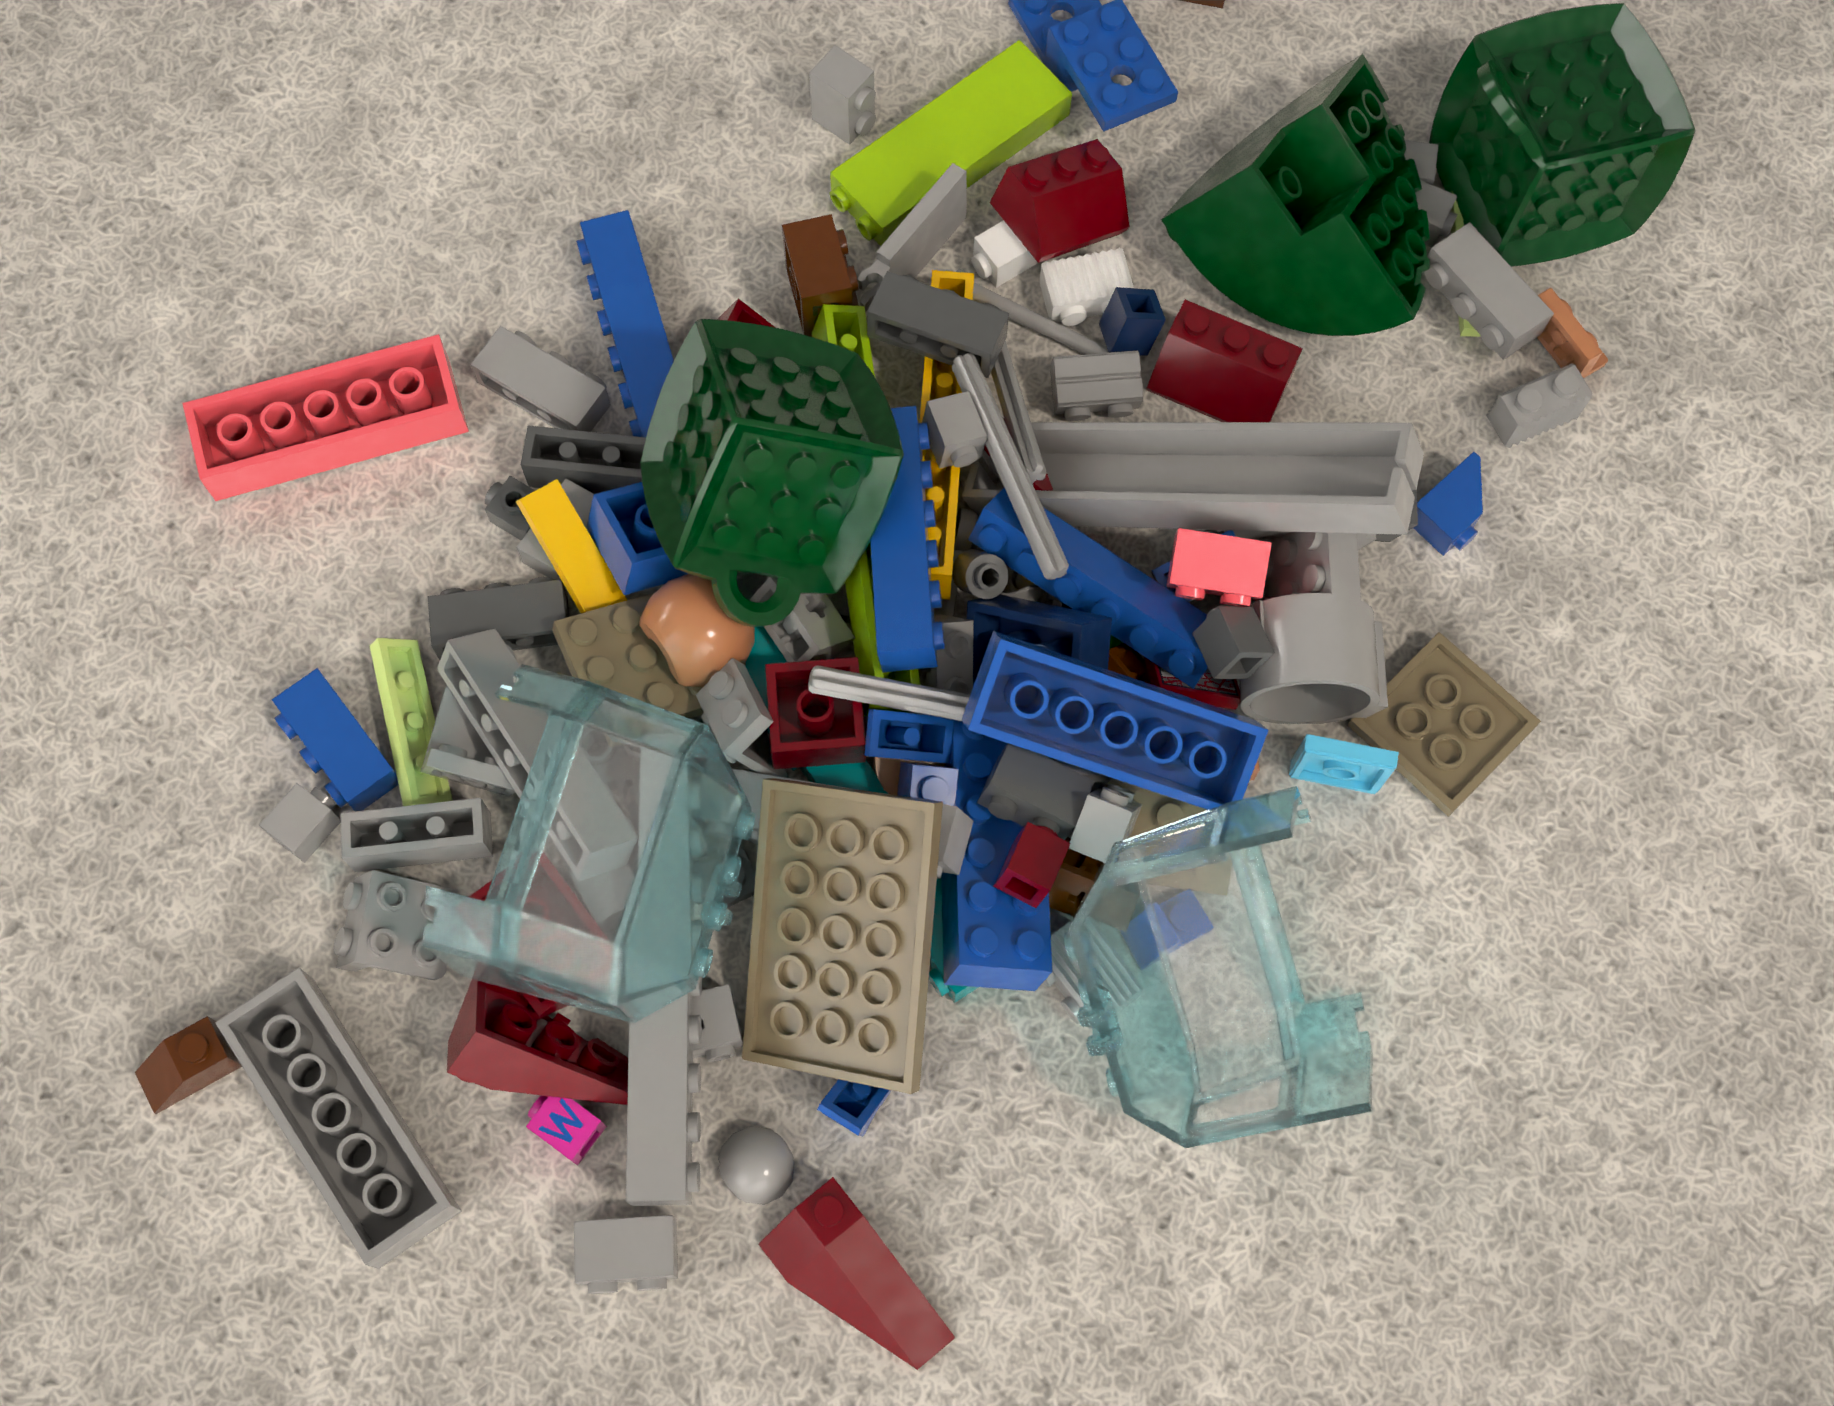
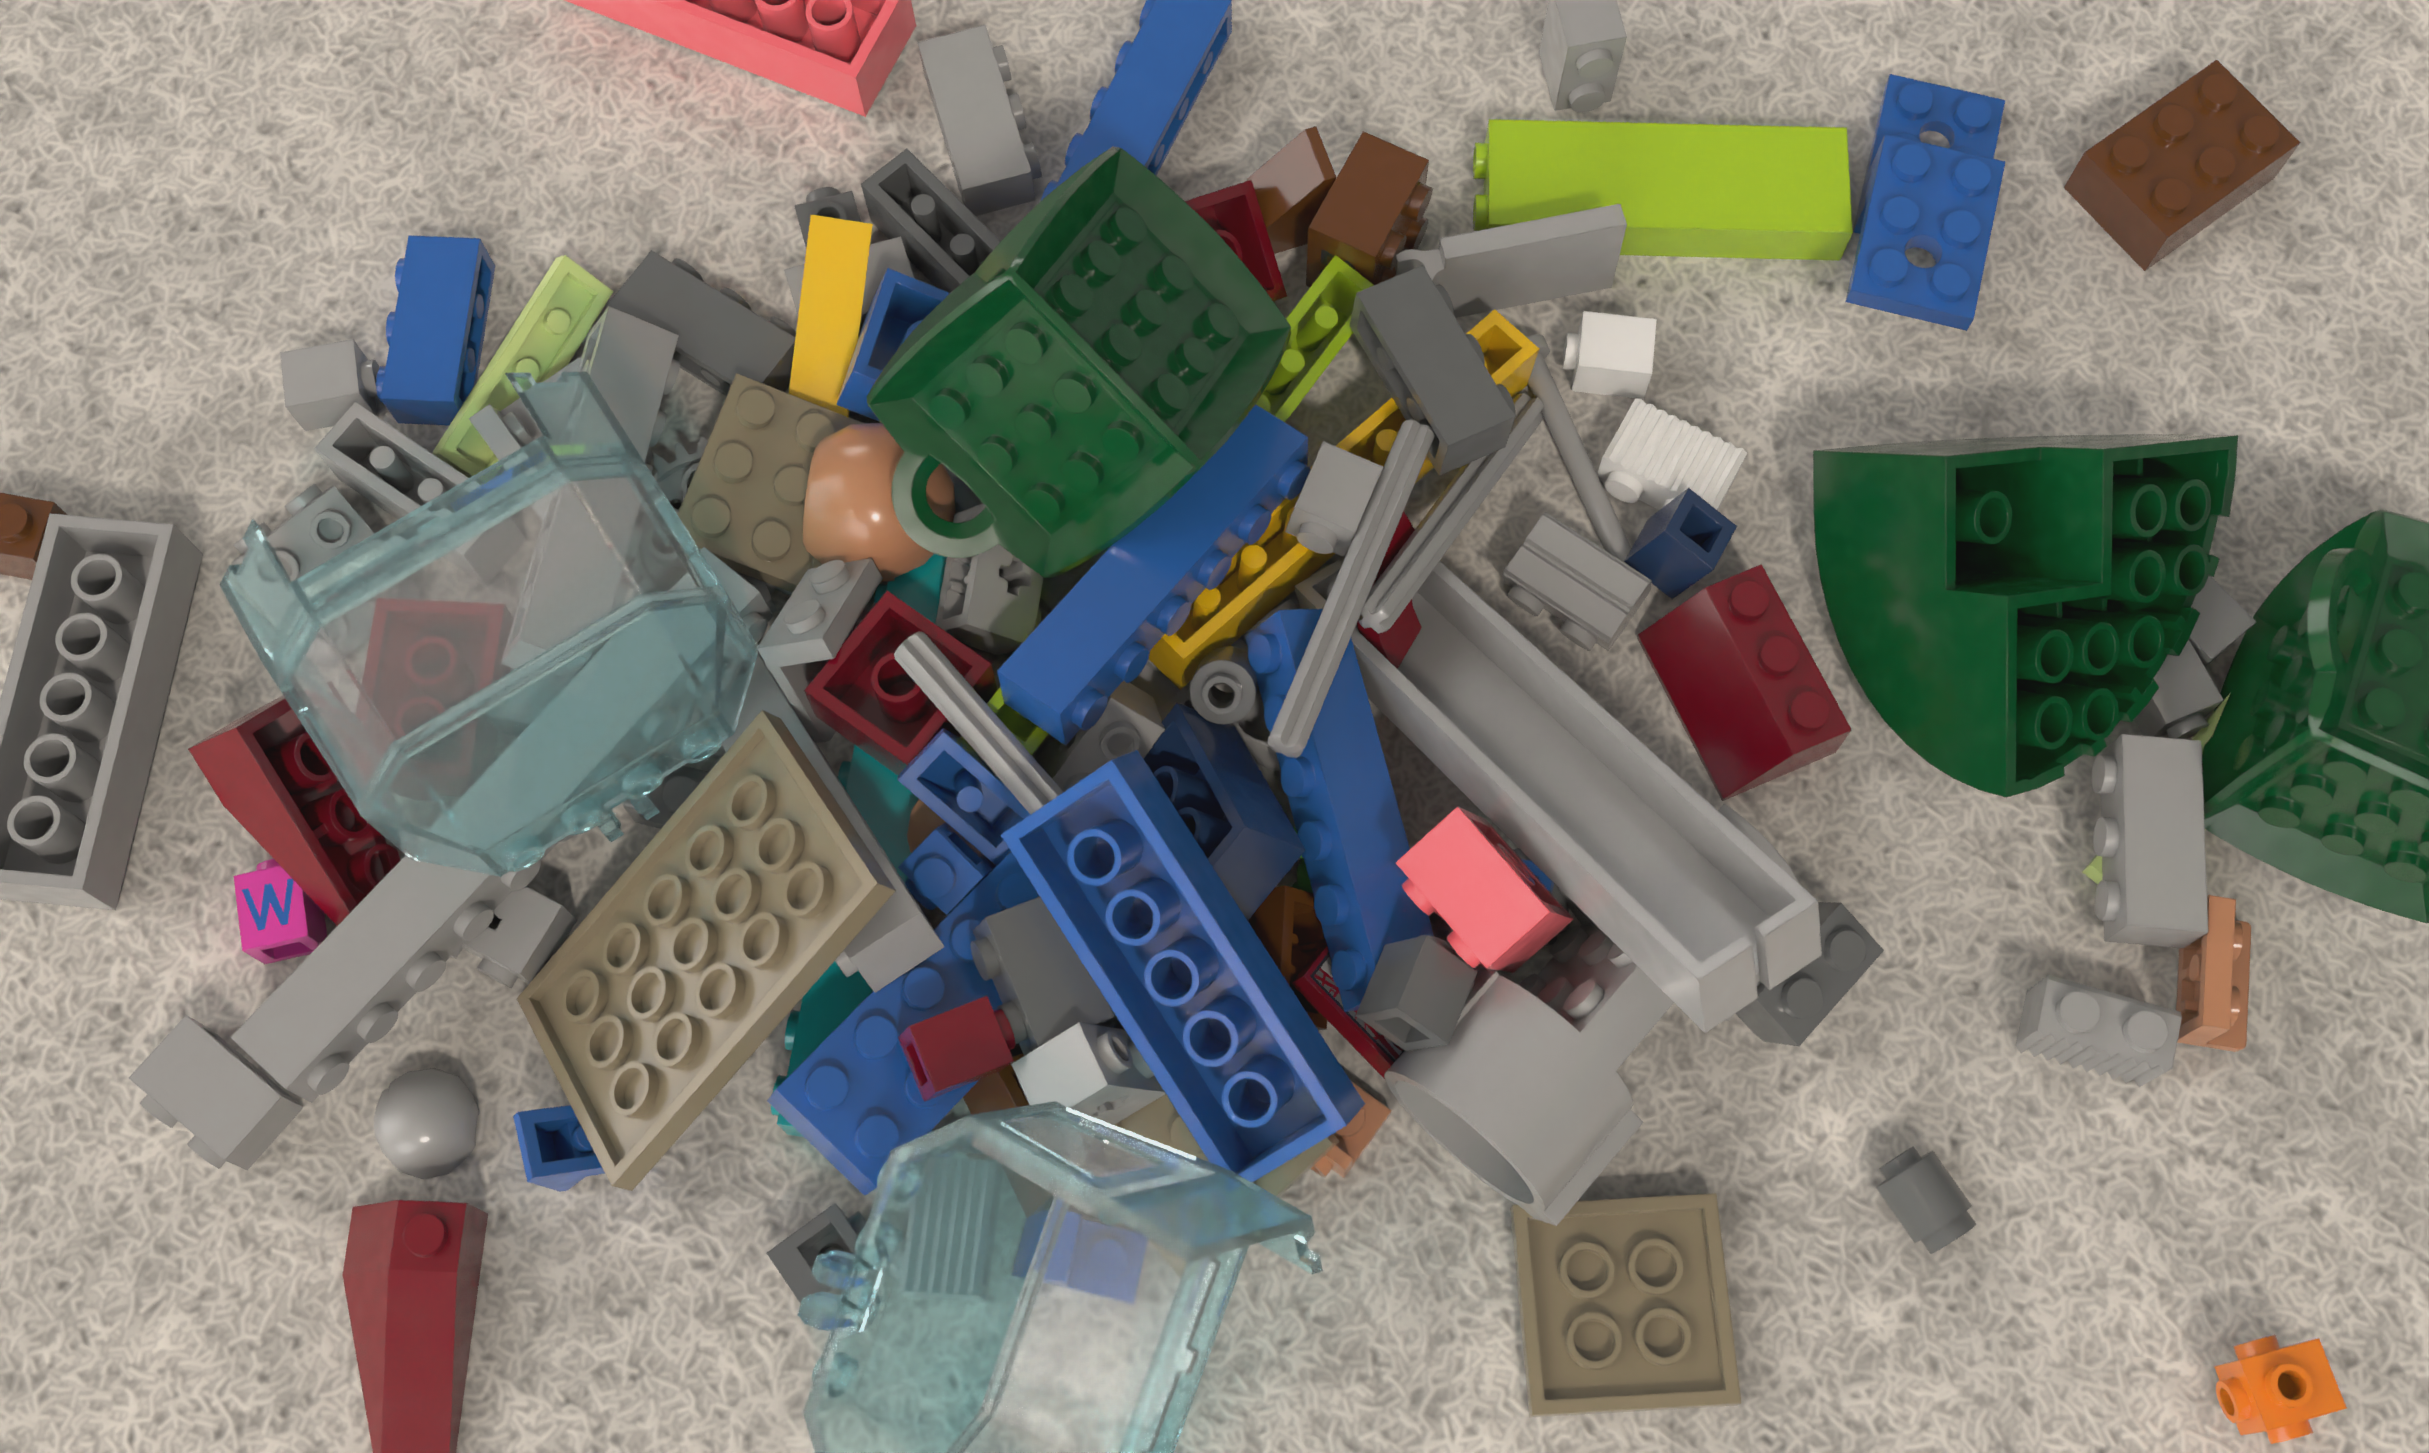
camera: 45 degrees right, 0 degrees up
(765, 283) = (1293, 188): none -> reddish brown slope
(1047, 1021) = (798, 1252): none -> dark grey brick
(1064, 200) = (1727, 346): dark red slope -> none
(1342, 764) = (1444, 1245): medium azure tile -> none
(1452, 507) = (1870, 1061): blue slope -> none
(1534, 552) = (1925, 1199): none -> dark grey brick
(1762, 506) = (2277, 1388): none -> orange brick

